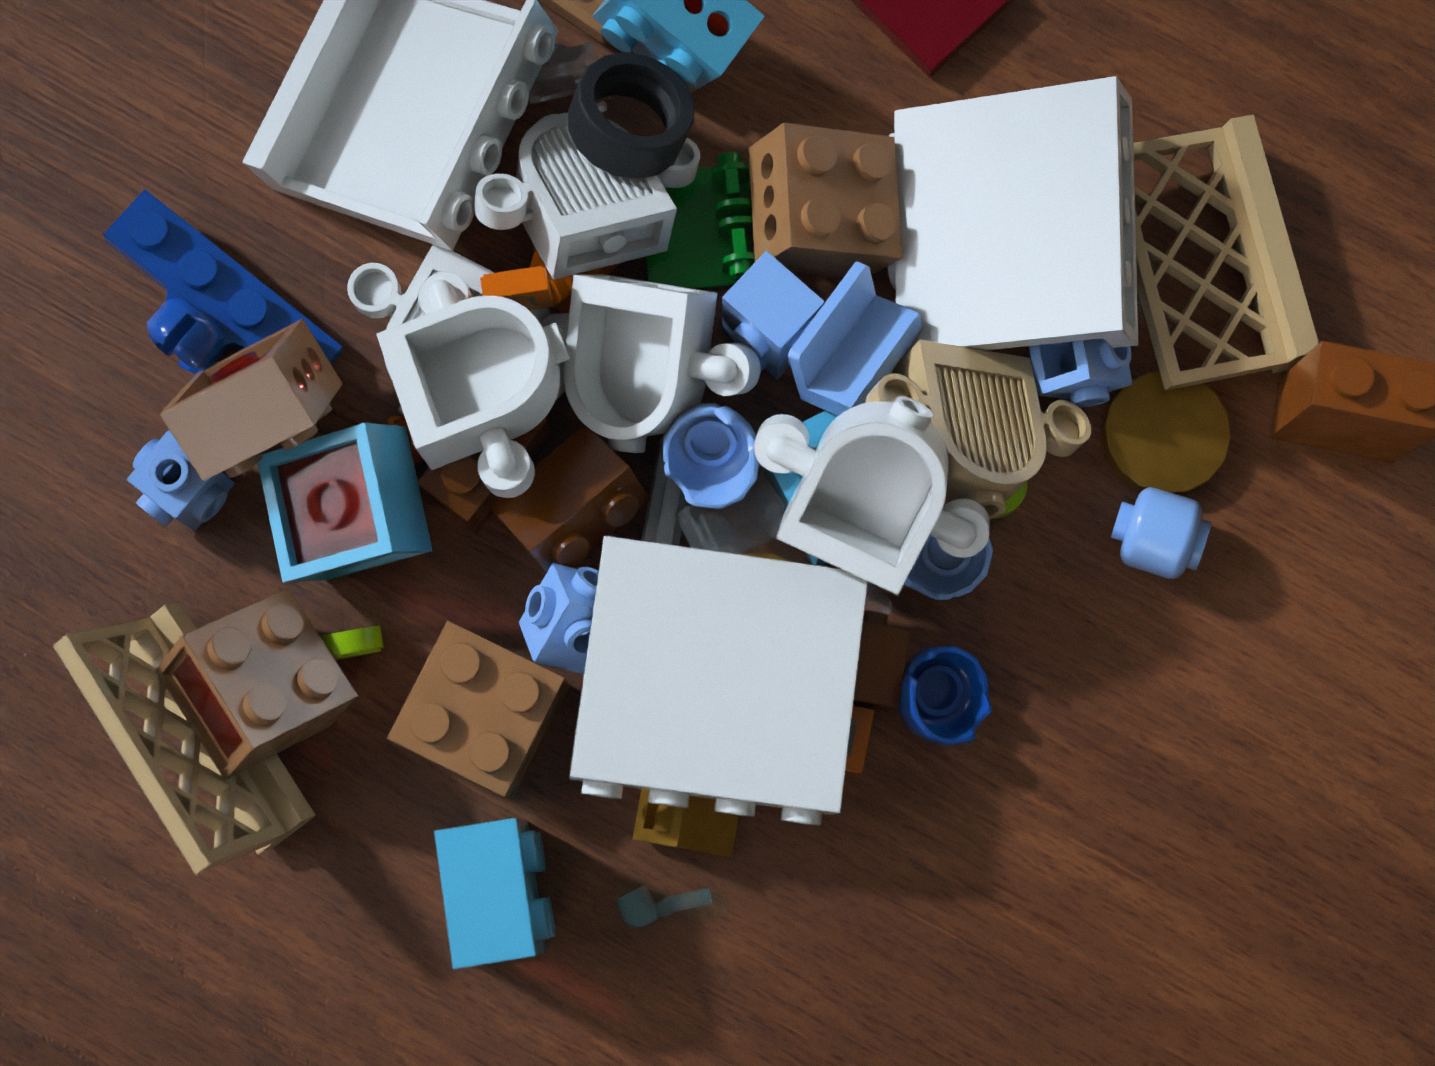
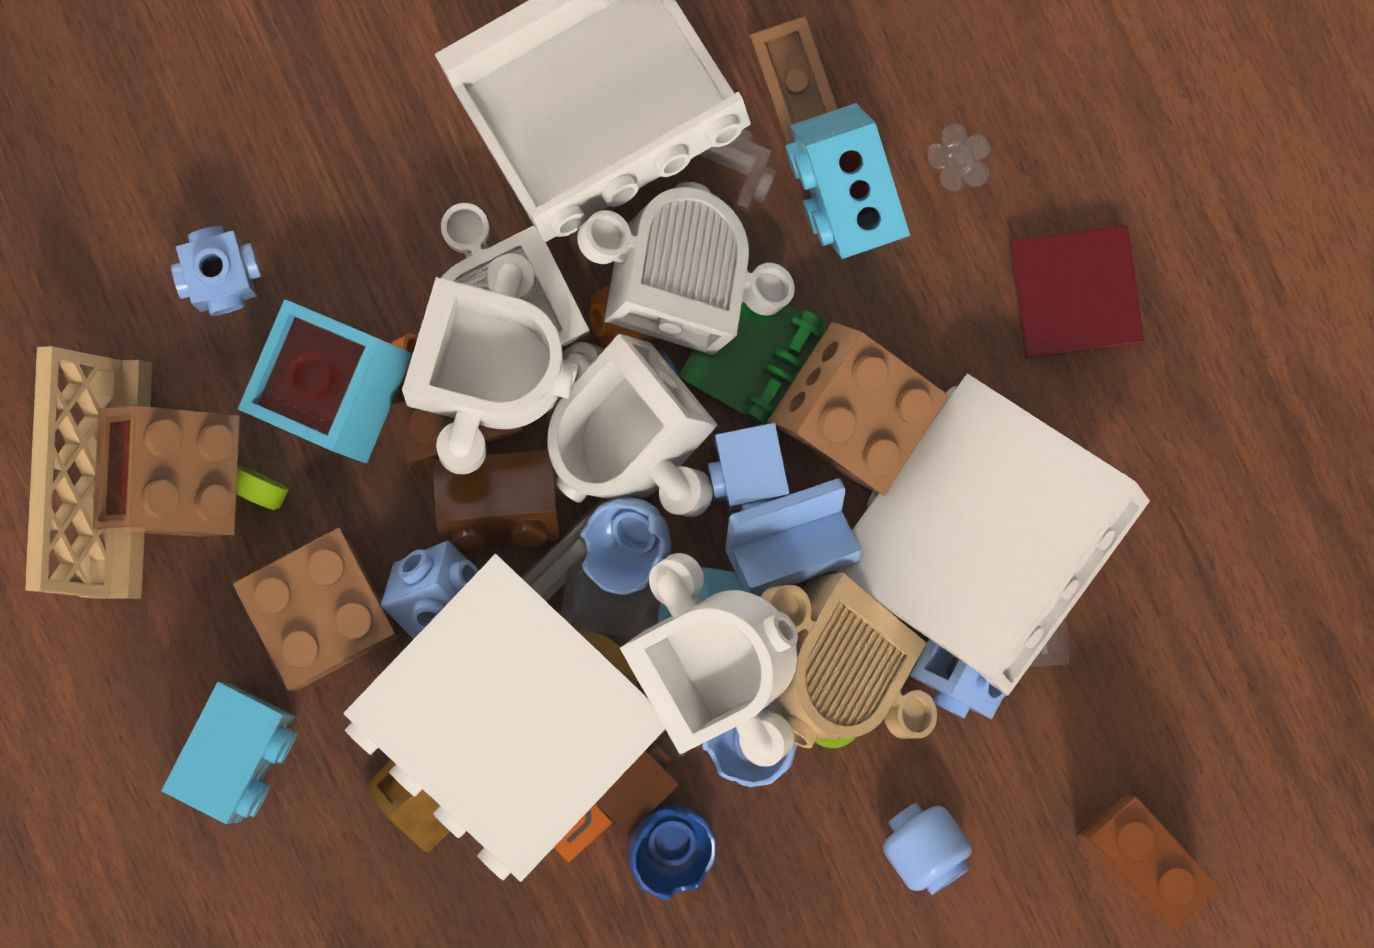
camera: 35 degrees right, 5 degrees up
(209, 295) = (341, 146): blue plate -> none
(253, 402) = (311, 256): medium nougat piece -> none
(525, 286) = (569, 313): orange tile -> none
(640, 909) = (331, 844): clear light blue hand -> none
(646, 81) = (789, 215): black tyre -> none
(1165, 437) = (994, 774): pearl gold tile -> none
(1261, 256) = (1169, 692): tan fence -> none

